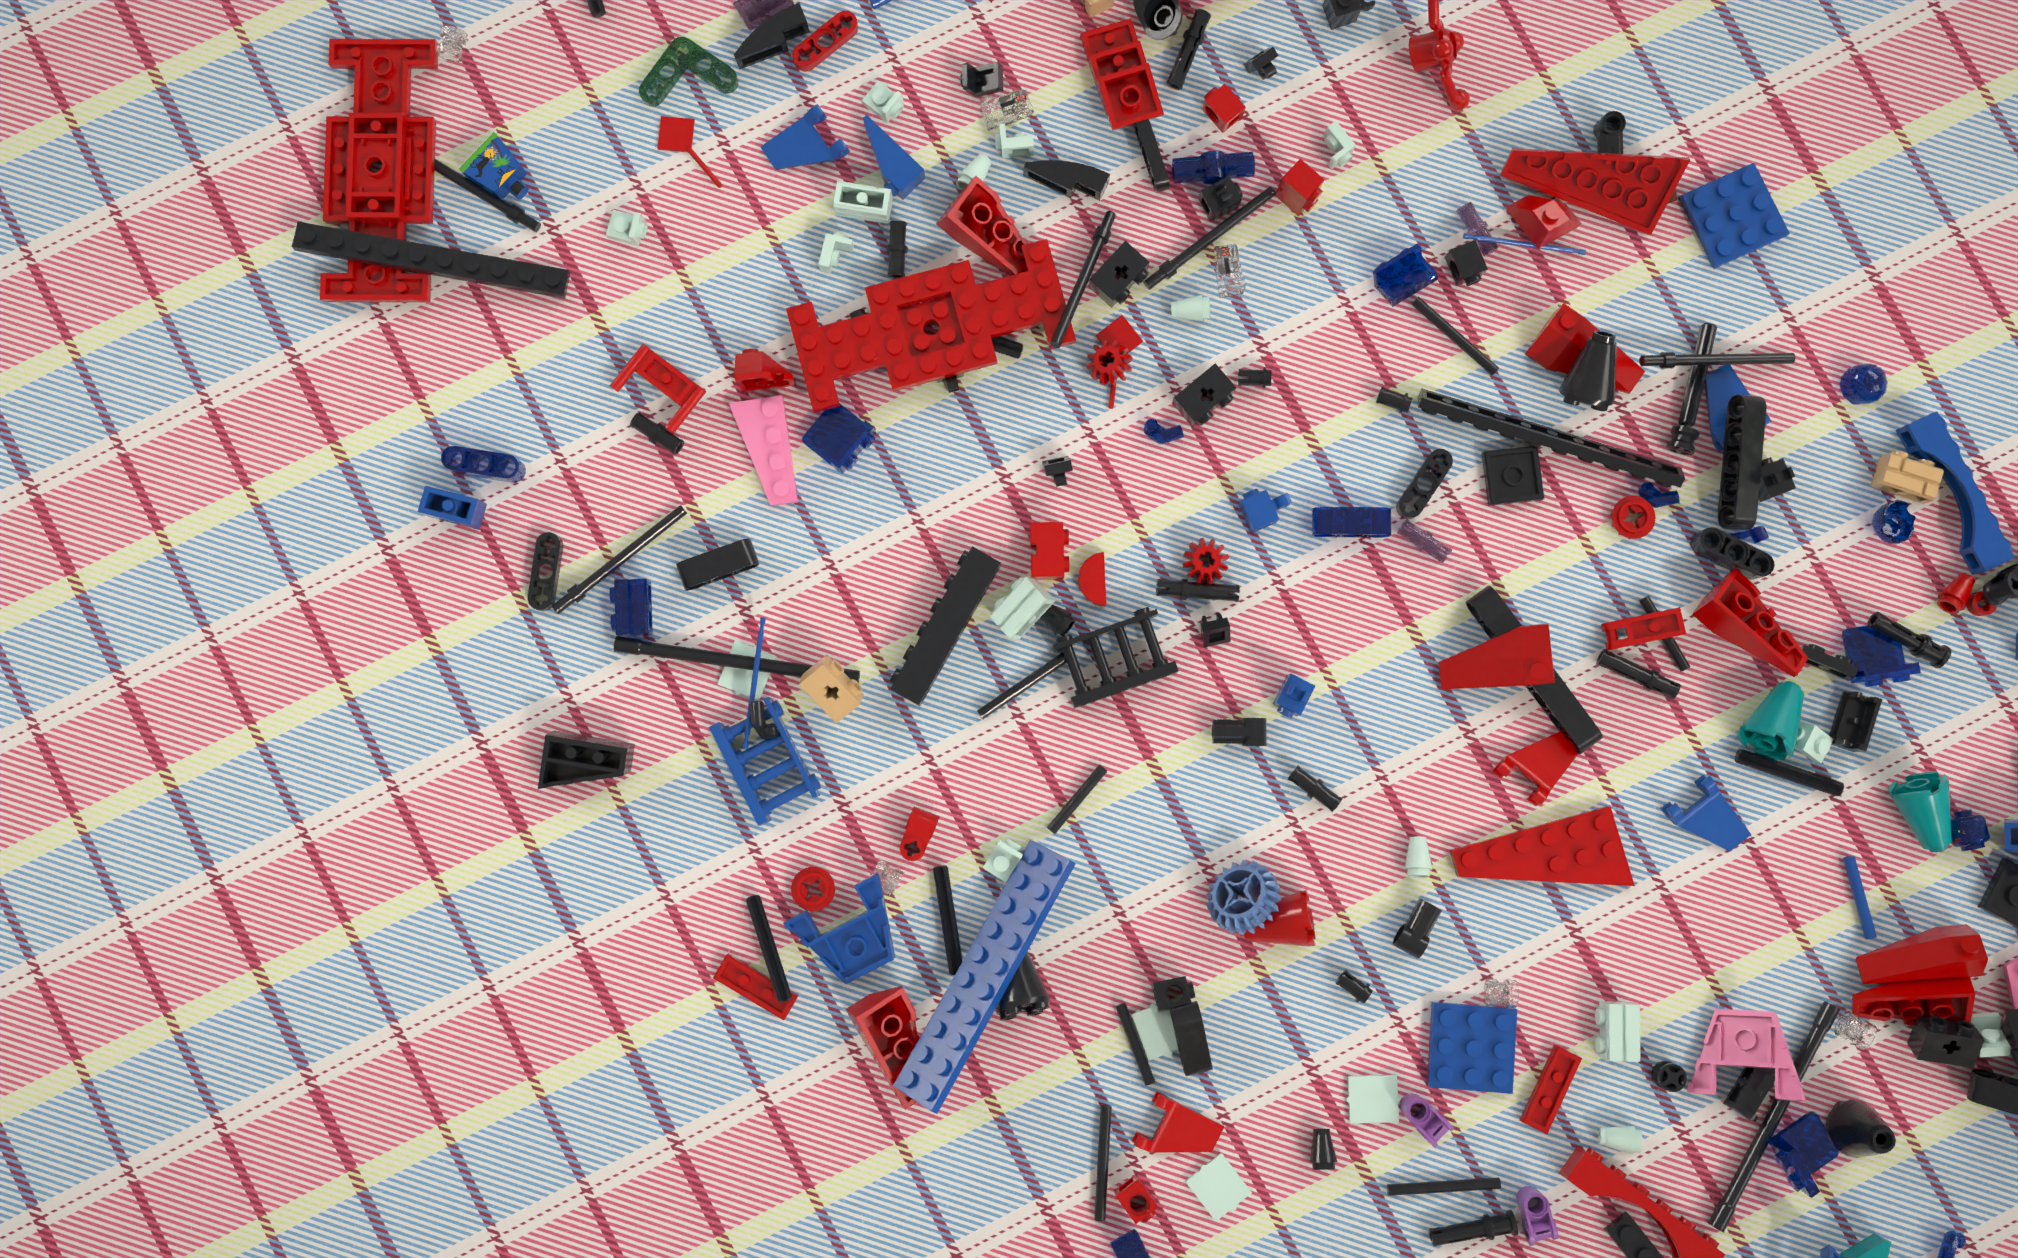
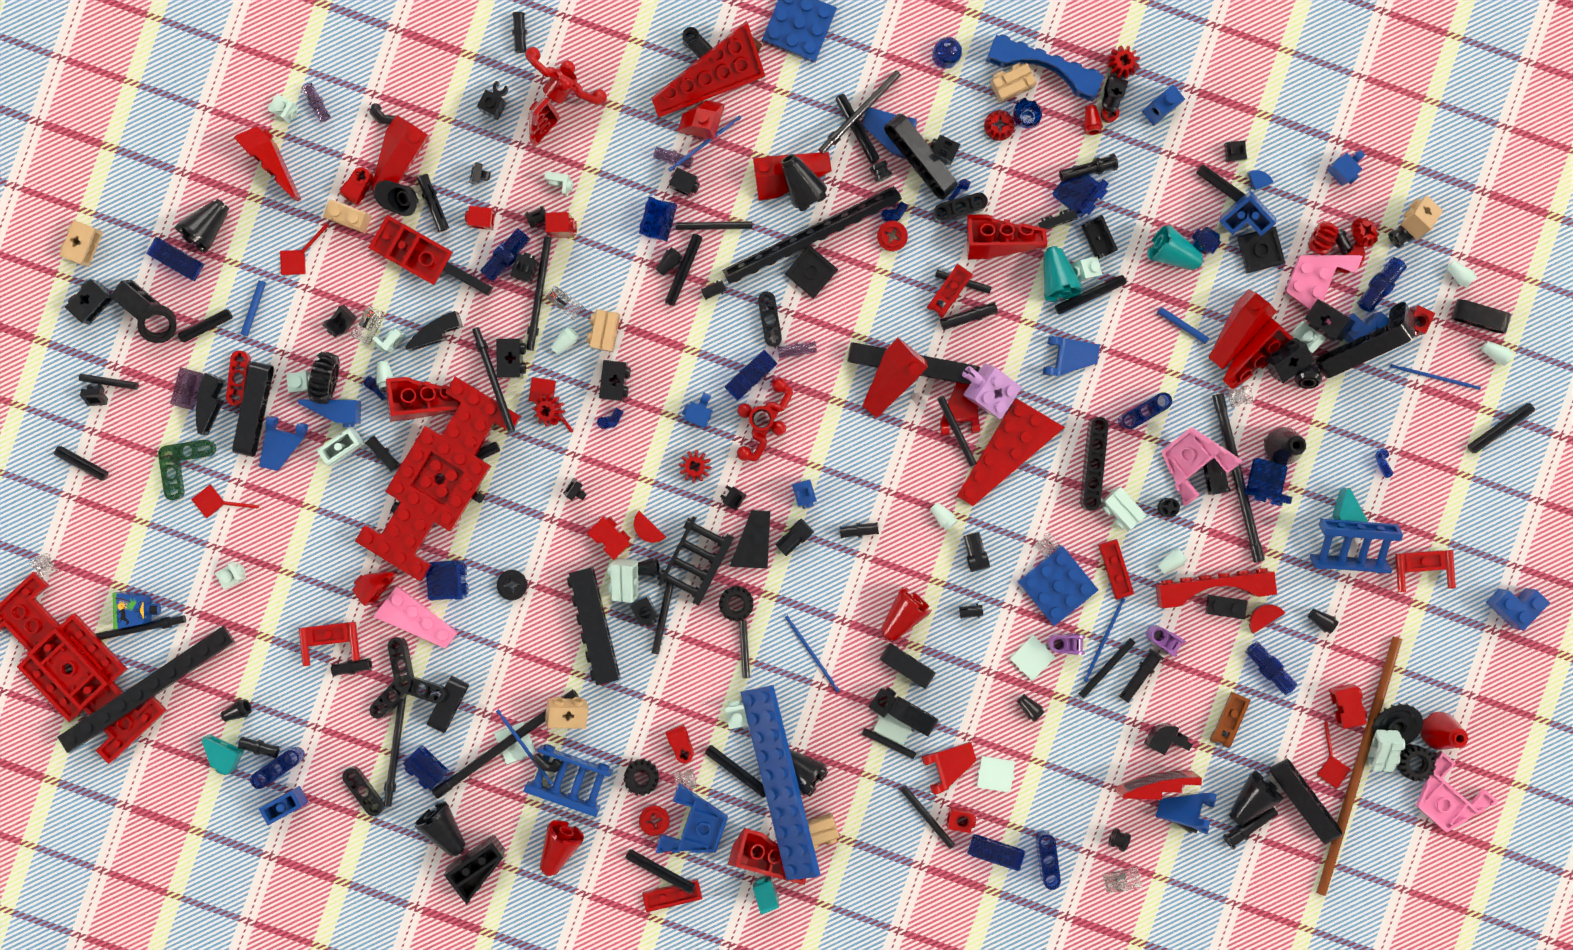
camera: 50 degrees left, 5 degrees up
(440, 398) = (221, 754): none -> teal slope
(484, 425) = (258, 747): none -> black pin
(500, 368) = (237, 710): none -> black cone
(587, 687) = (441, 829): none -> black cone
(689, 820) = (559, 846): none -> red cone
(696, 511) = (409, 689): none -> black piece
(810, 84) = (253, 409): none -> black beam
(826, 830) = (637, 788): none -> black tyre
(829, 254) = (350, 490): light aqua bracket -> none
(856, 1079) = (766, 894): none -> teal slope
(899, 492) = (507, 592): none -> black gear
(914, 116) = (323, 377): none -> black gear
(952, 168) = (370, 384): none -> clear blue hand
(982, 1071) = (823, 830): none -> tan brick
(1010, 648) = (636, 608): none -> black brick
(1126, 731) = (727, 611): none -> black tyre
(1143, 872) = (812, 654): none -> blue piece
(1192, 697) = (754, 542): none -> black wing
(1197, 590) = (699, 489): black pin -> none
(1233, 980) = (907, 665): none -> black beam
(1236, 912) = (874, 609): medium blue gear -> none
(1242, 335) = (604, 330): none -> tan brick
(1257, 377) = (634, 343): black pin -> none
(1281, 159) = (536, 216): none -> black bush
(1307, 588) = (759, 433): none -> red wheel
(1375, 328) = (669, 260): none -> black cone
(1381, 351) = (683, 269): none -> black axle
(1383, 65) = (541, 119): none -> red wedge
(1468, 1153) = (1104, 640): none -> blue piece
(1515, 782) = (956, 430): none -> black bar
(1594, 771) = (990, 389): none -> lavender brick
(1644, 952) = (1099, 455): none -> black beam
(1750, 949) = (1154, 409): none -> clear blue beam
(1839, 508) = (992, 130): none -> red gear
(1949, 1080) = (1308, 377): none -> black cone

